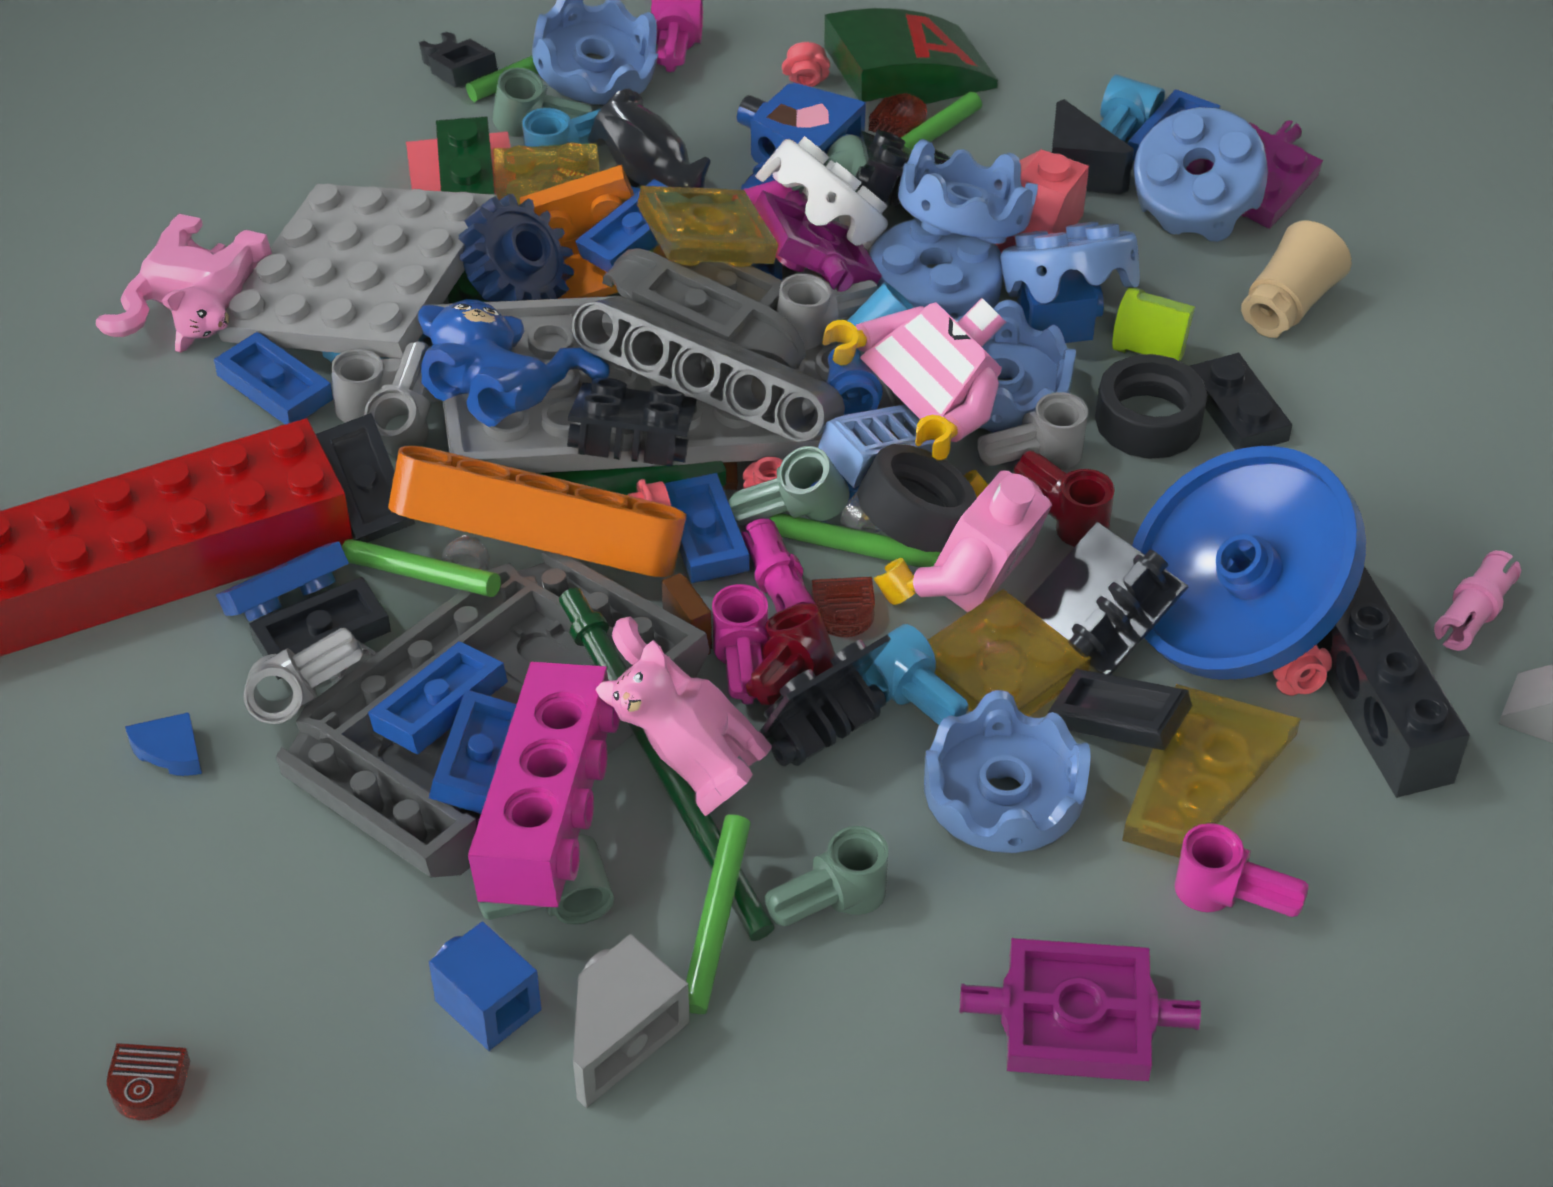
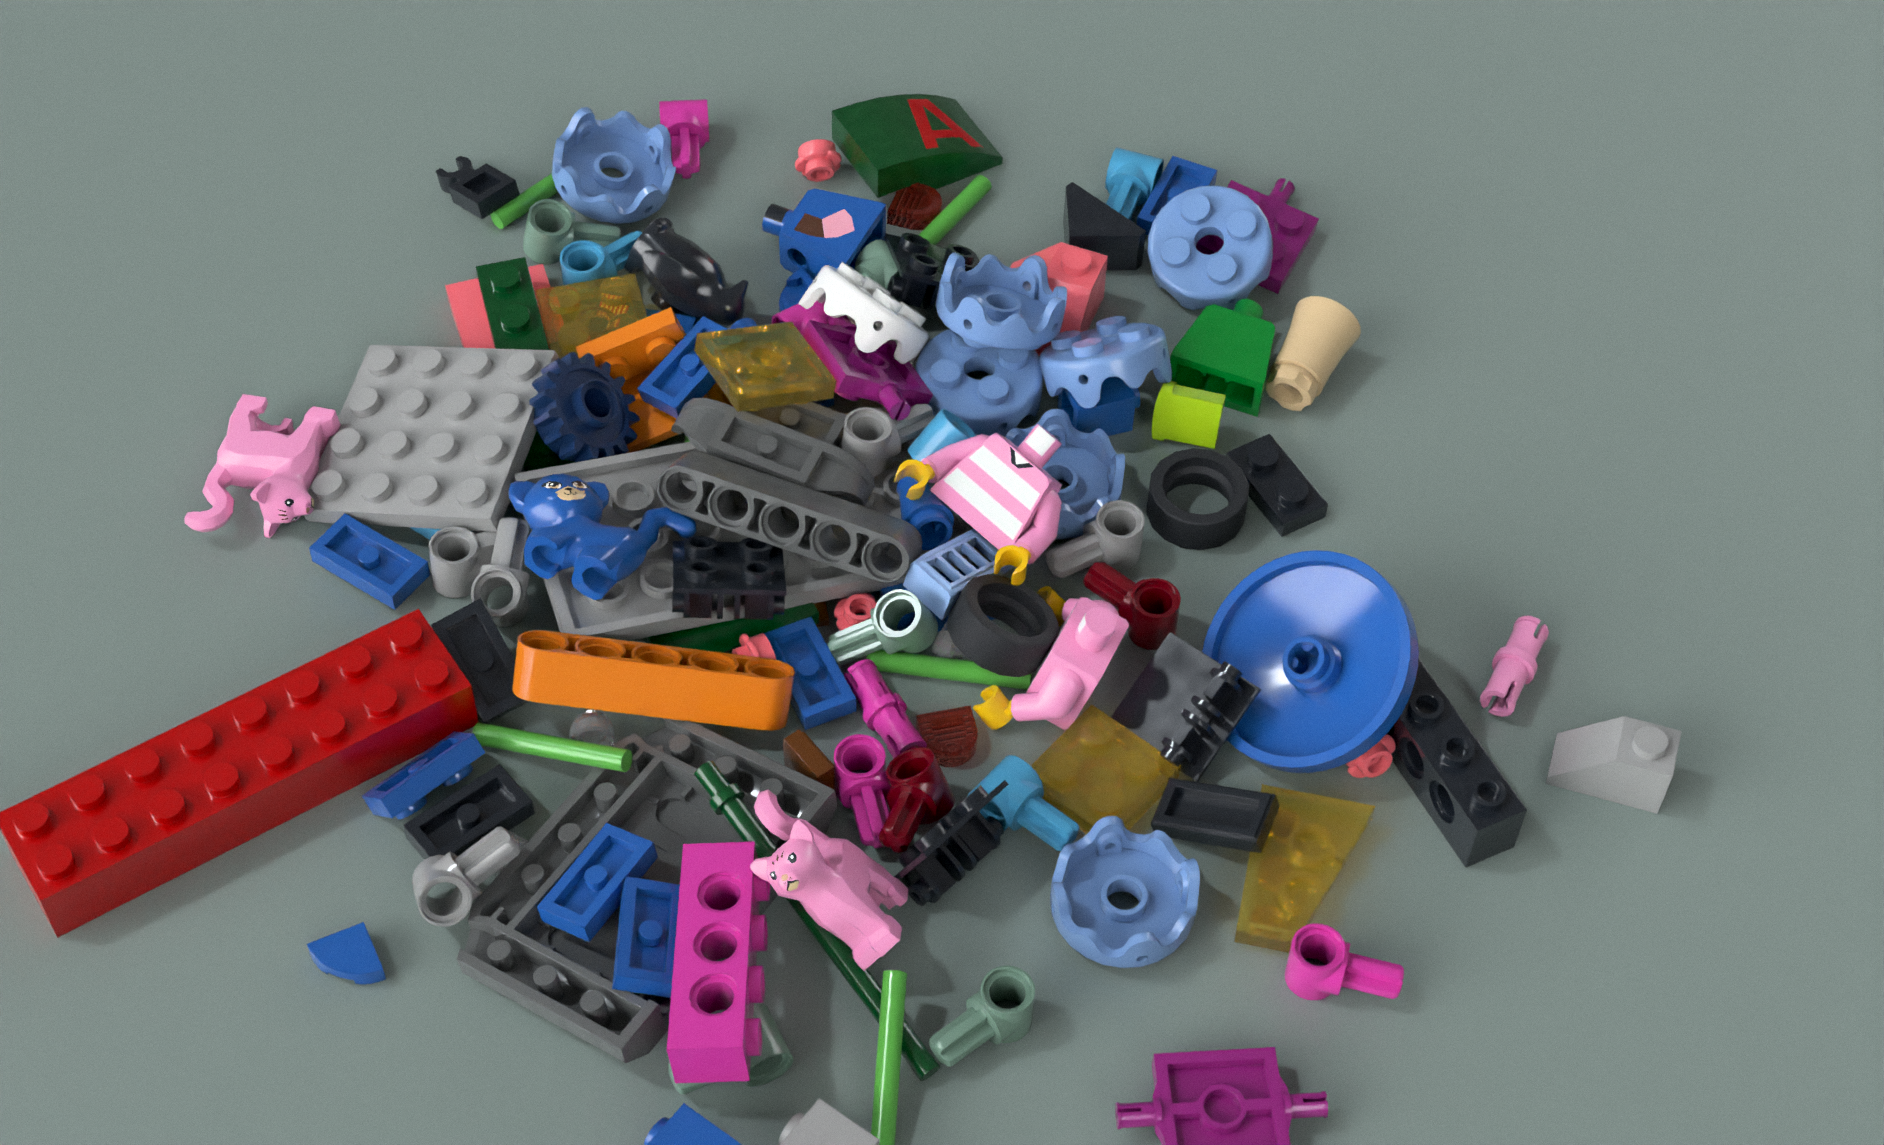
camera: 10 degrees left, 5 degrees up
(1204, 271) = (1227, 354): none -> green torso

